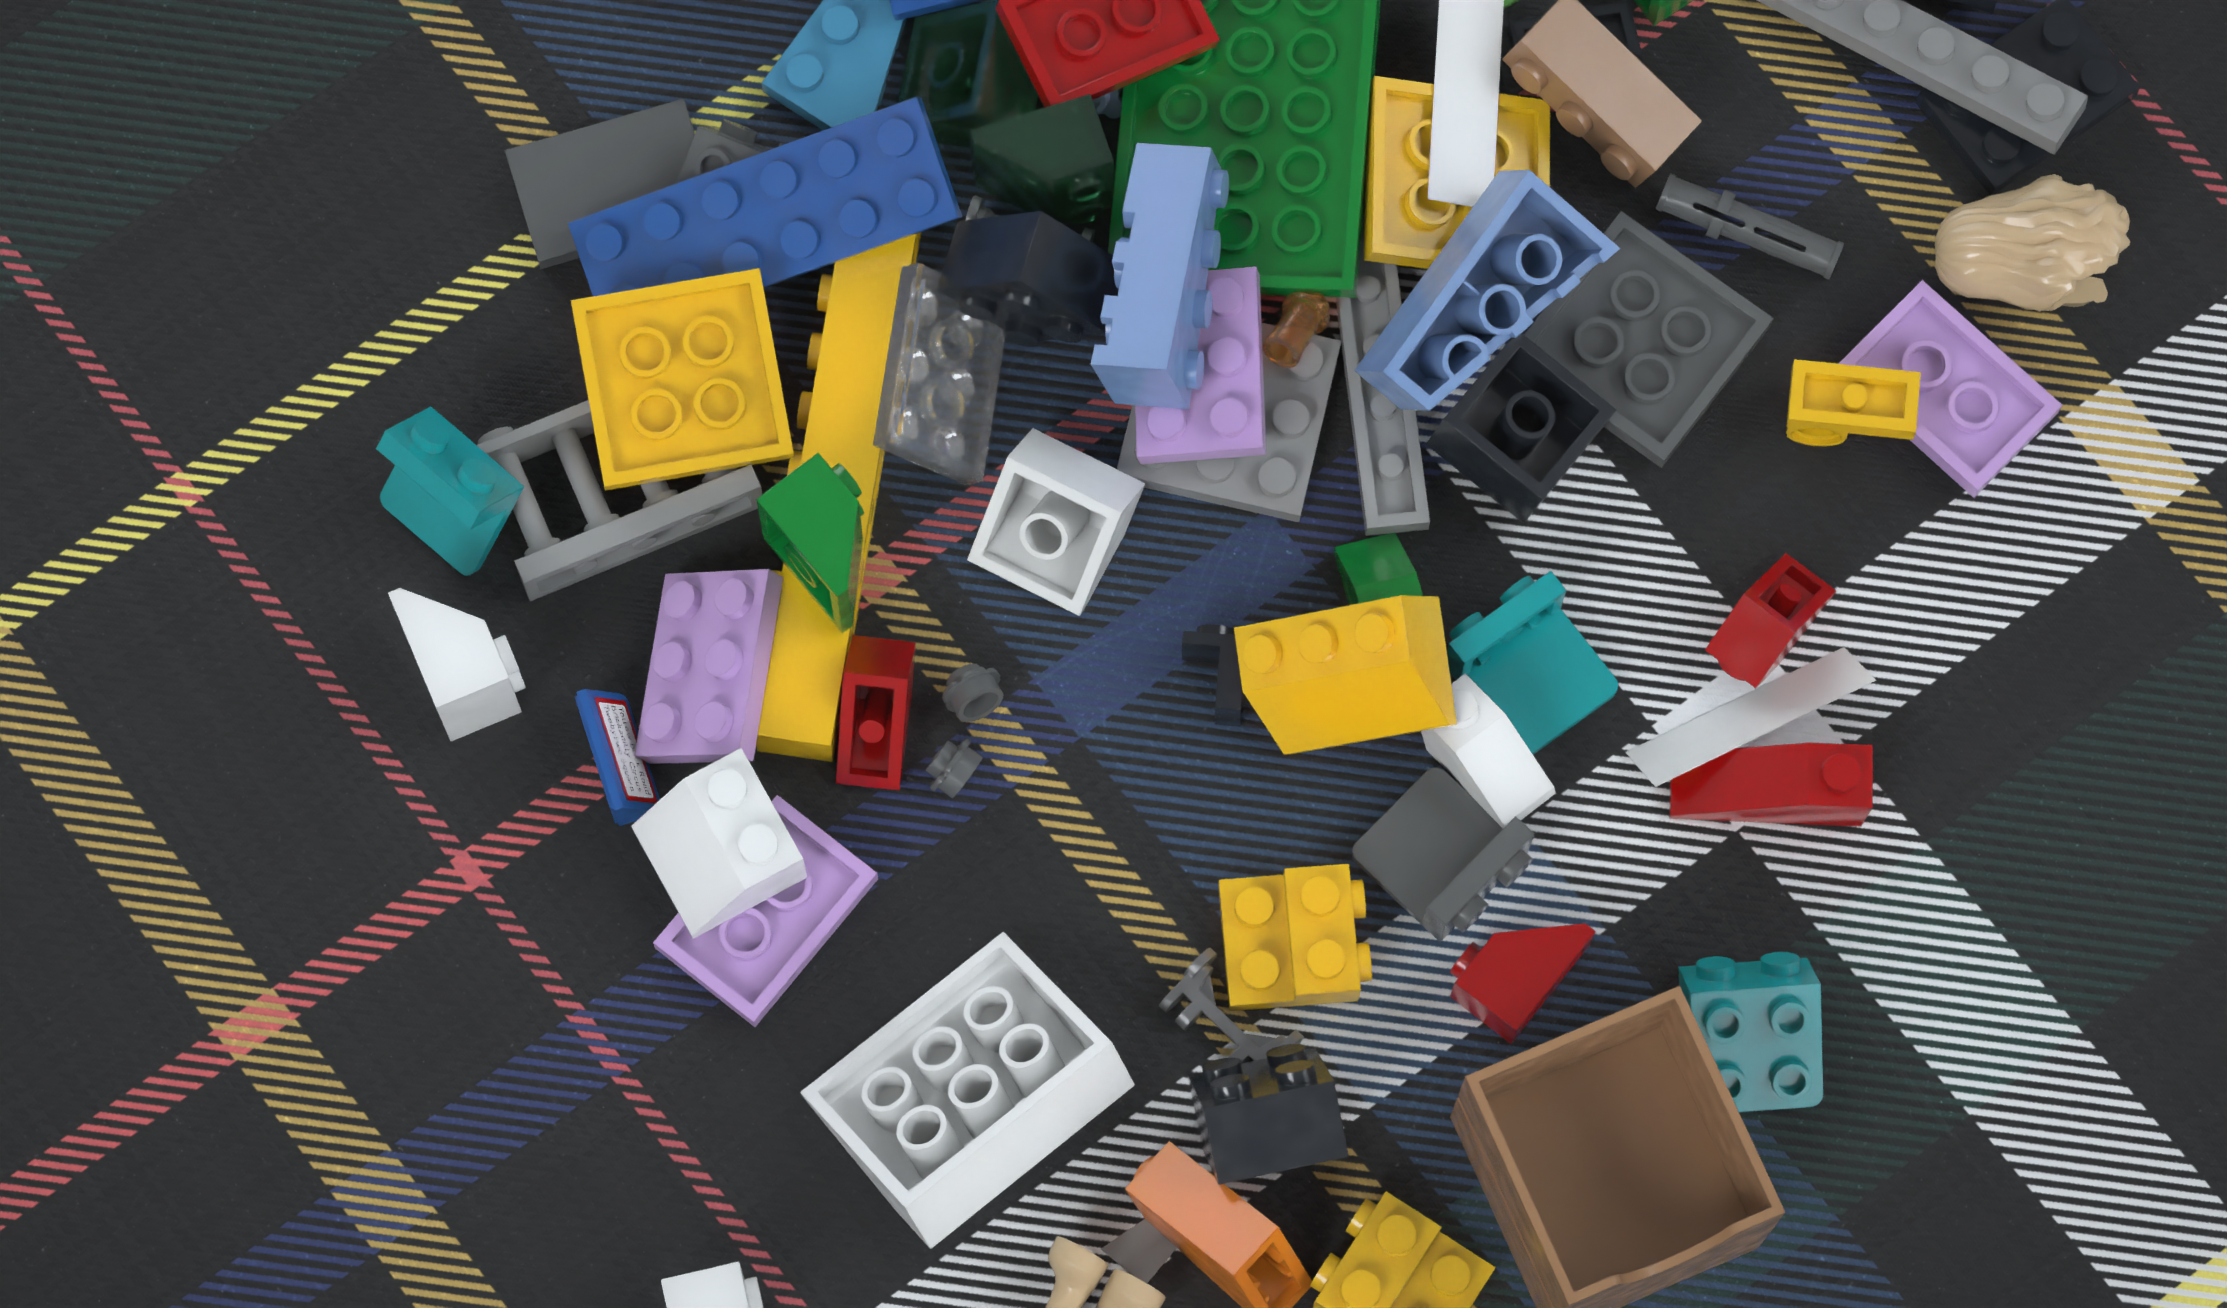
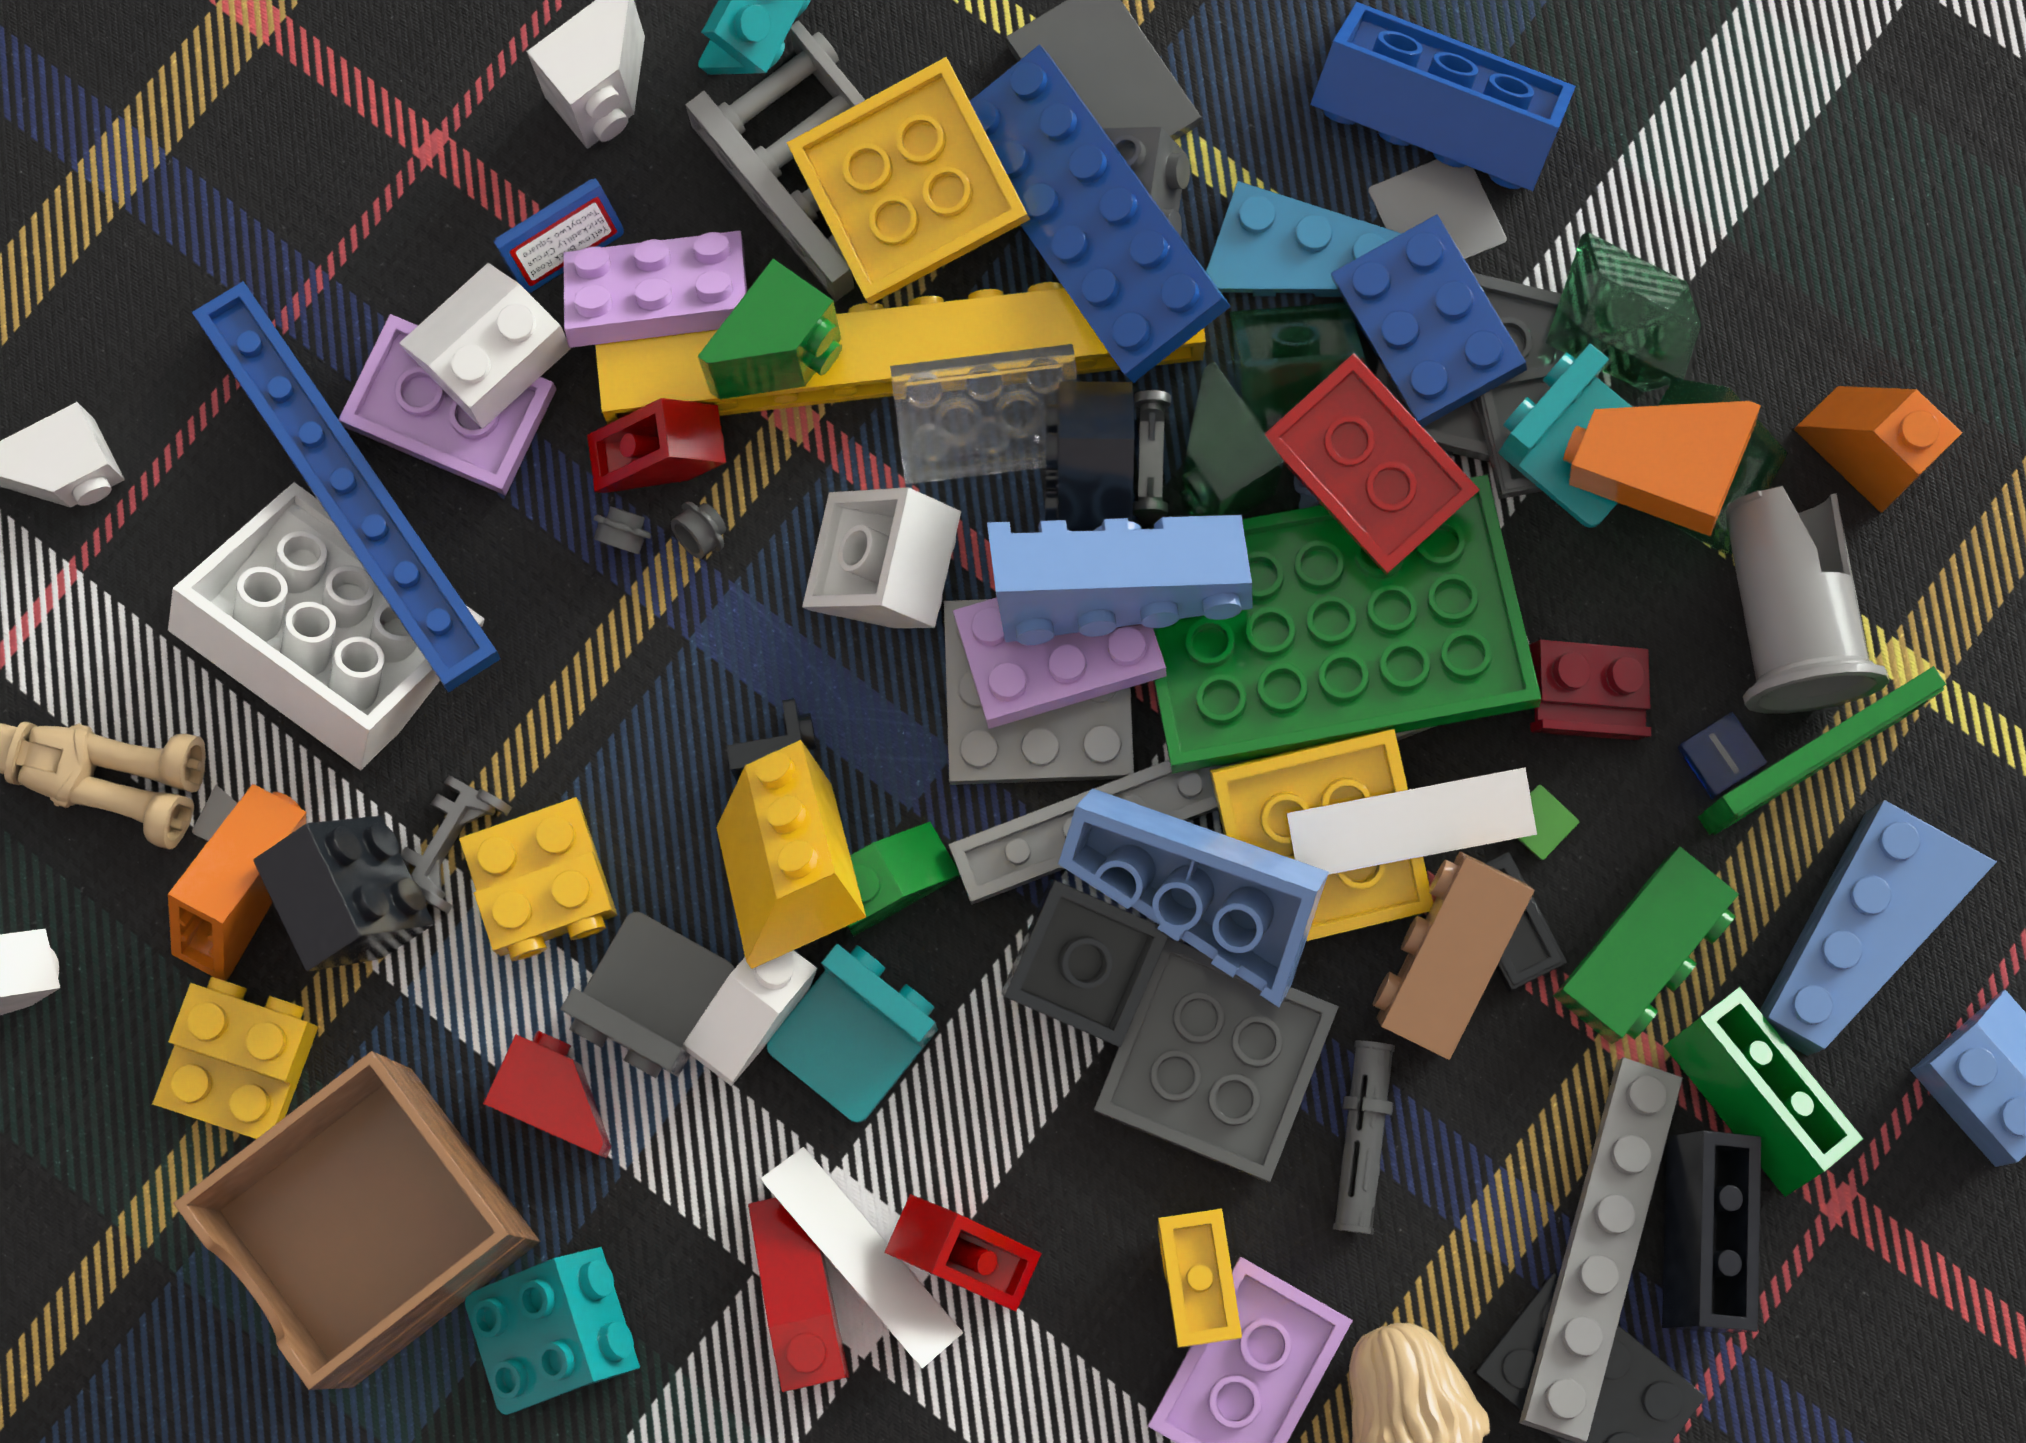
camera: 80 degrees right, 5 degrees up
(826, 1027) = (347, 487): none -> blue plate
(1301, 319) = (1125, 725): clear orange pin -> none

